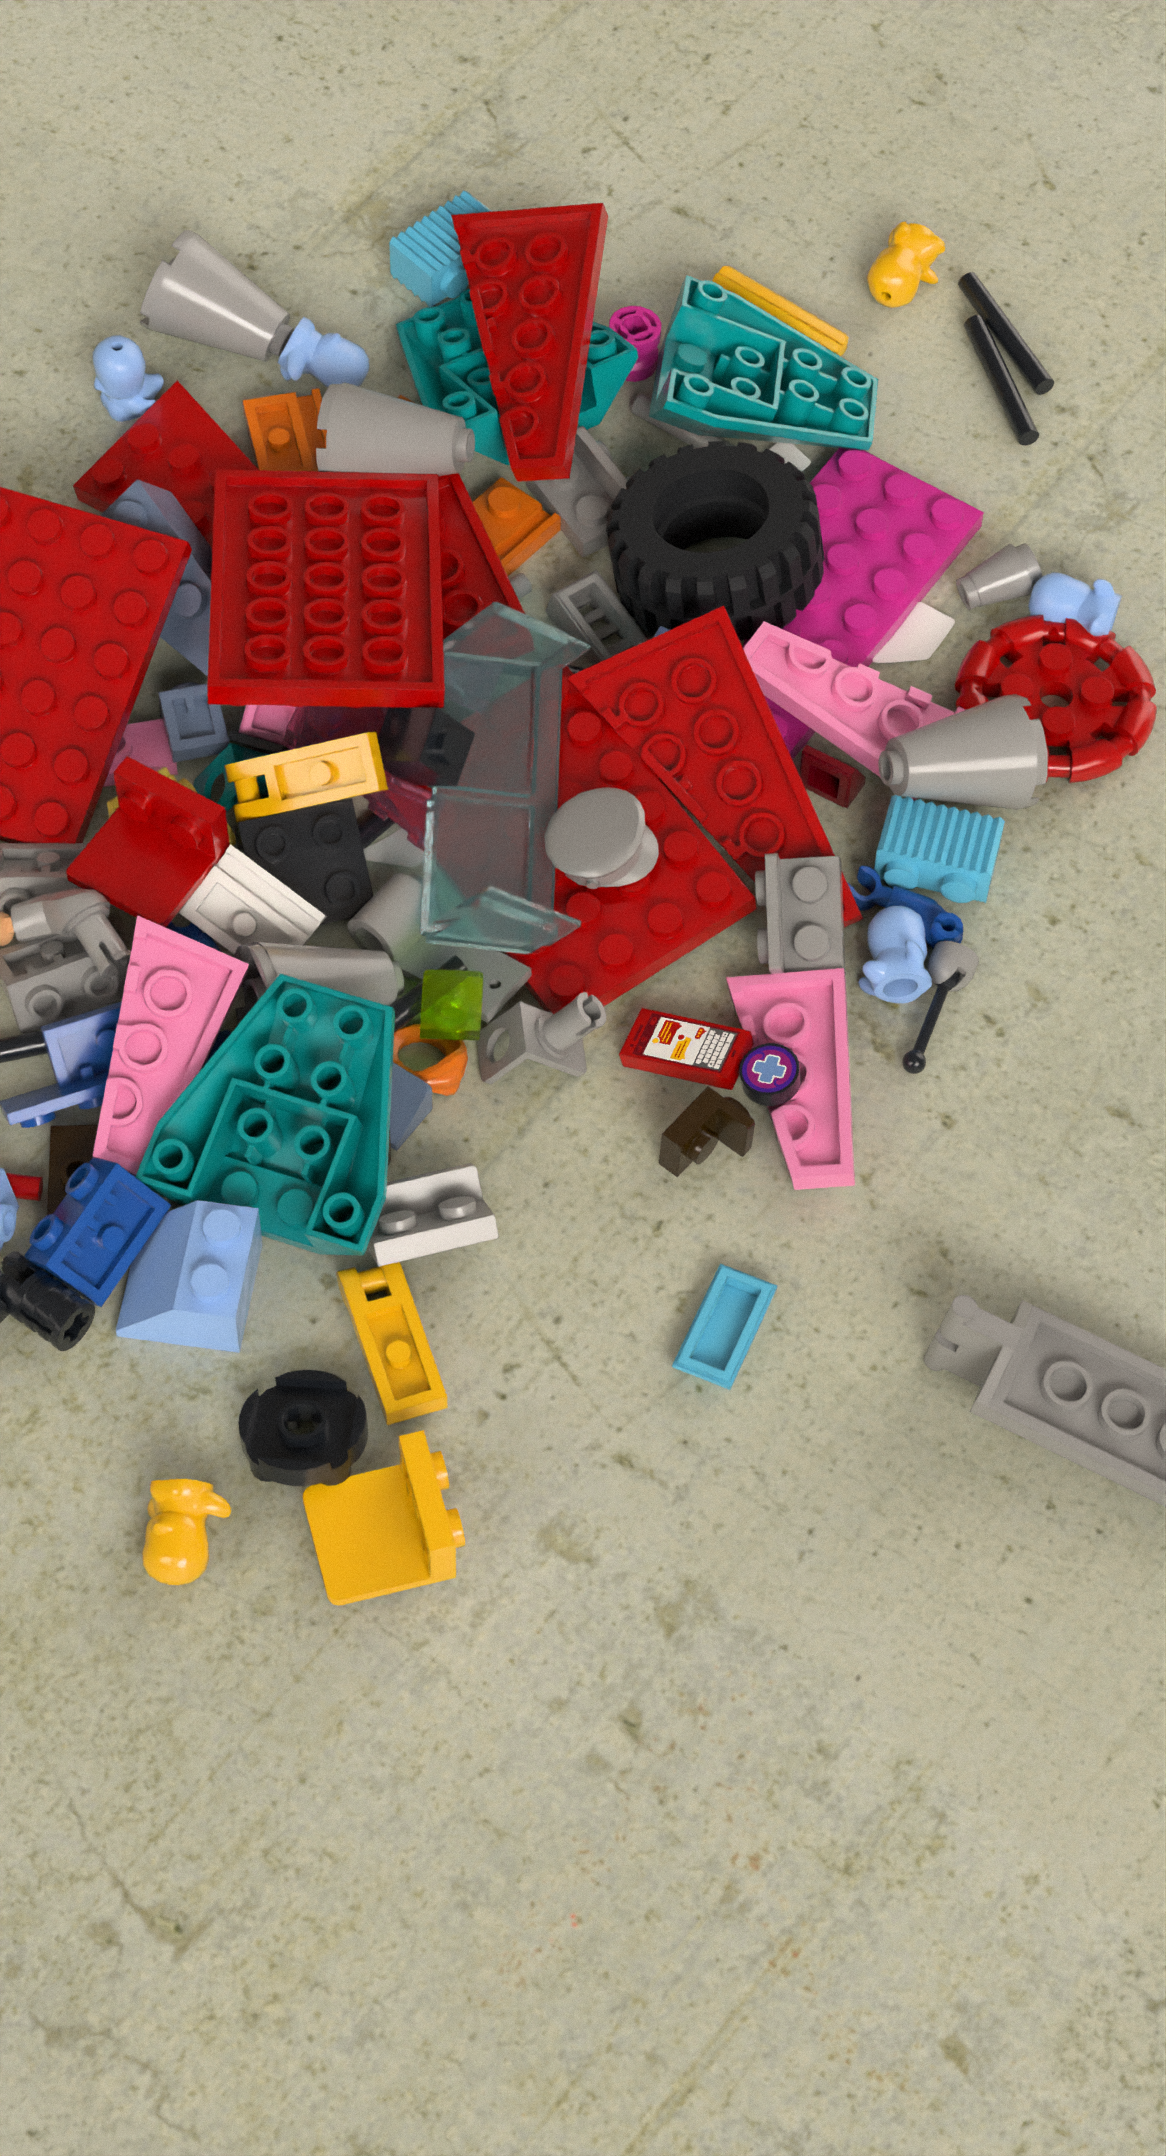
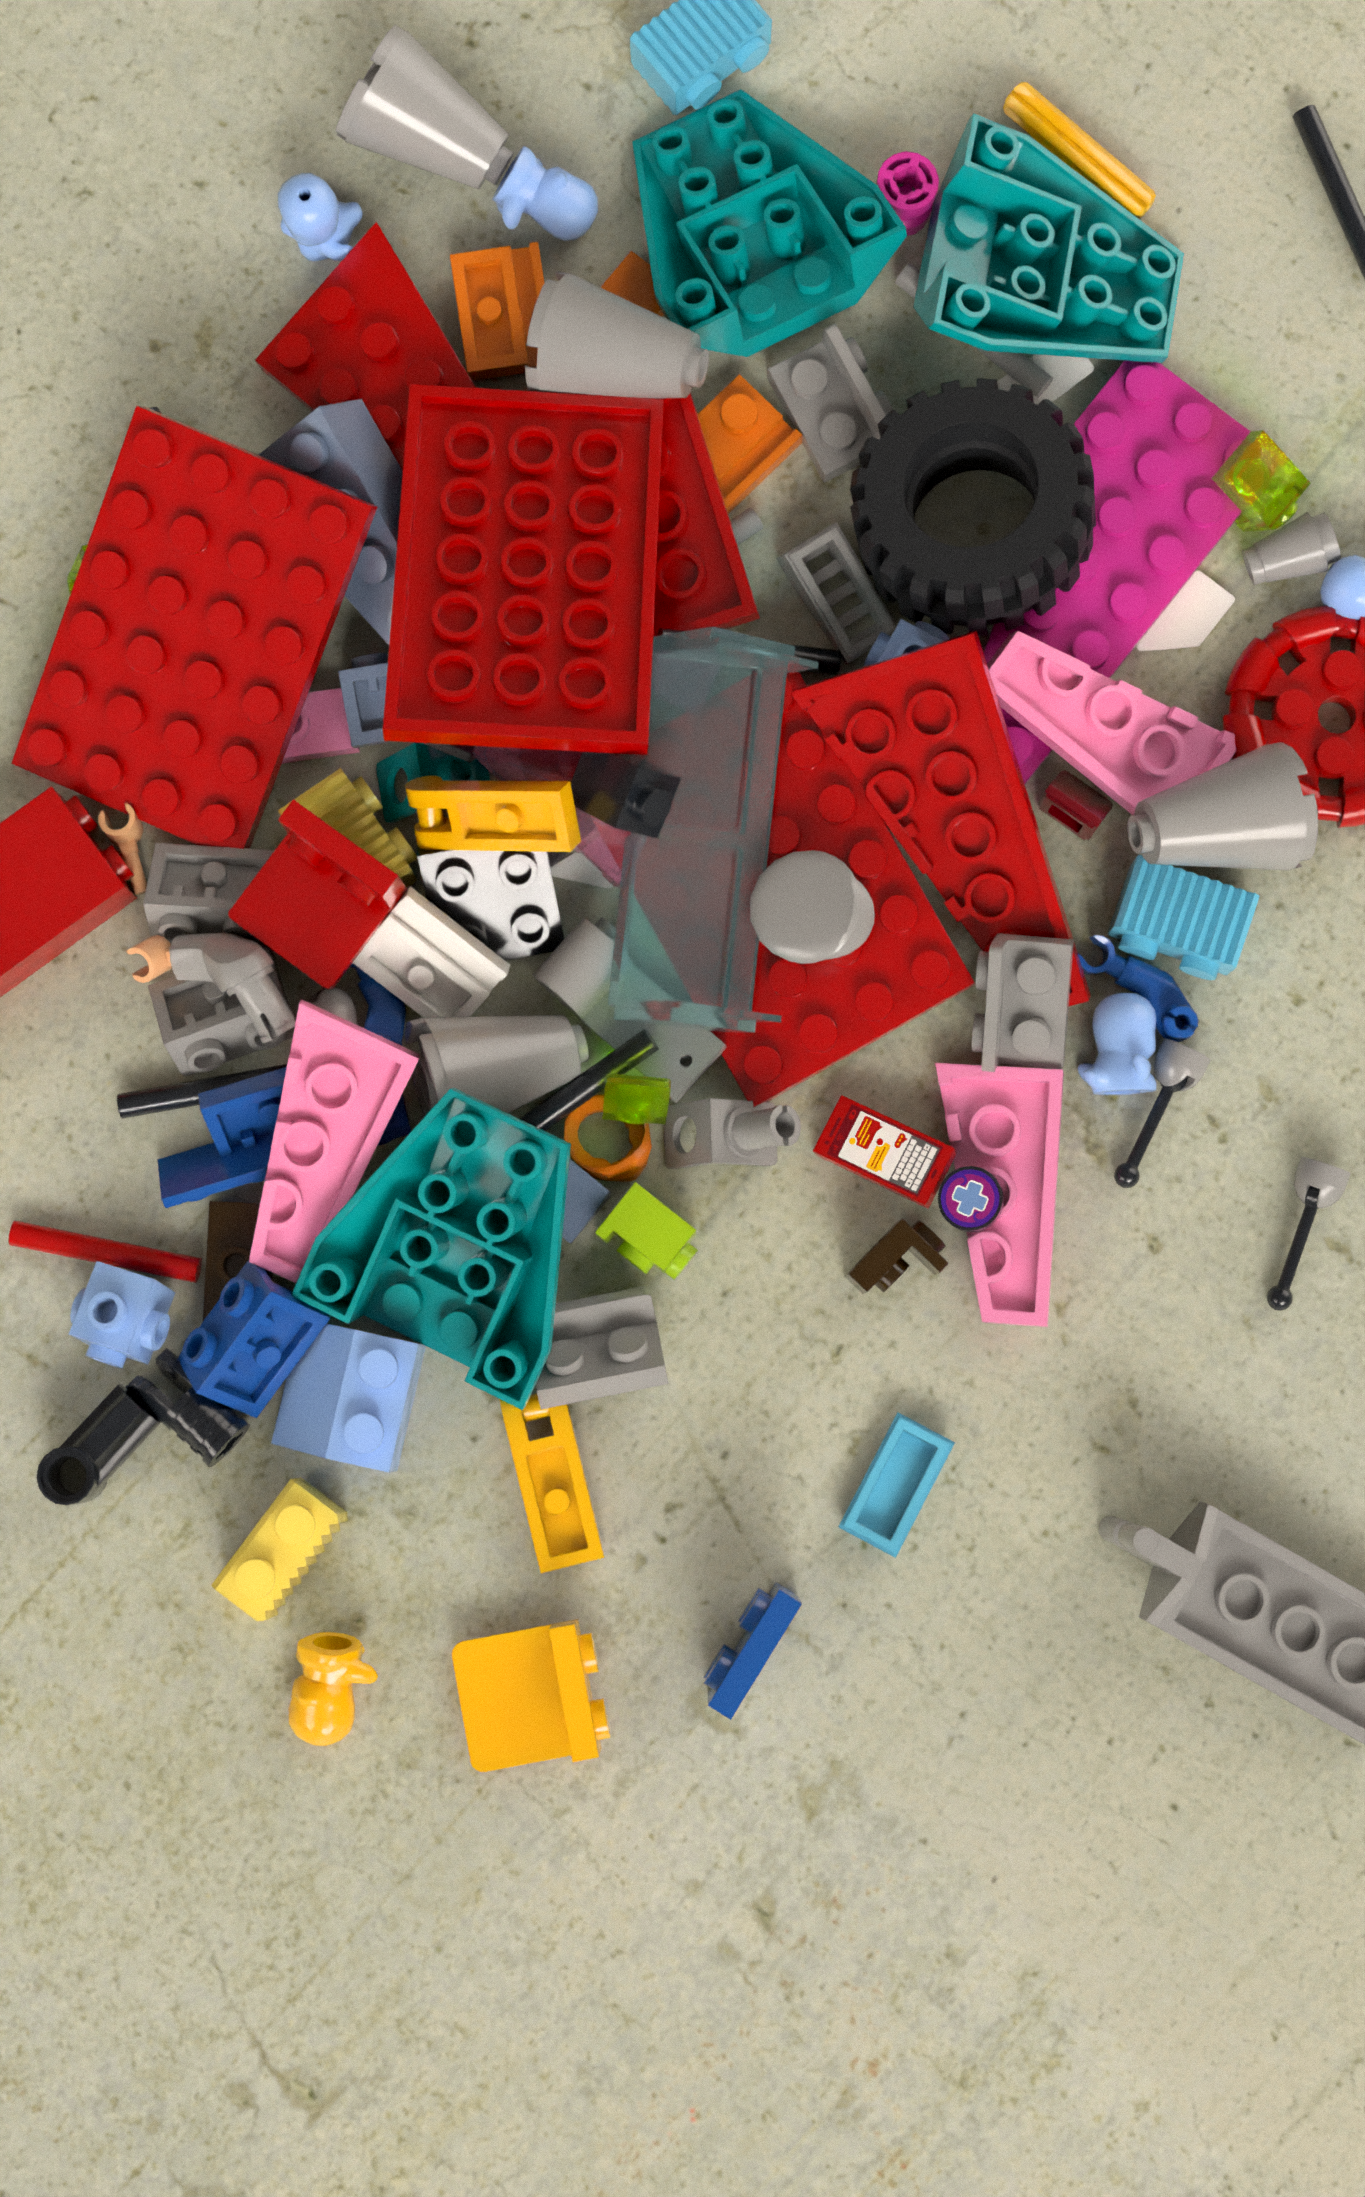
camera: 10 degrees right, 25 degrees up
(130, 1409) = (280, 1550): none -> light yellow brick
(307, 1458) = (435, 1552): black plate -> none
(470, 1123) = (649, 1233): none -> lime brick
(534, 310) = (792, 157): red wing -> none
(593, 1461) = (736, 1670): none -> blue plate
(903, 264) = (1226, 96): yellow animal -> none
(965, 523) = (1261, 483): none -> clear neon green bracket
(1001, 380) = (1327, 261): black bar -> none
(1091, 1054) = (1317, 1187): none -> hinge

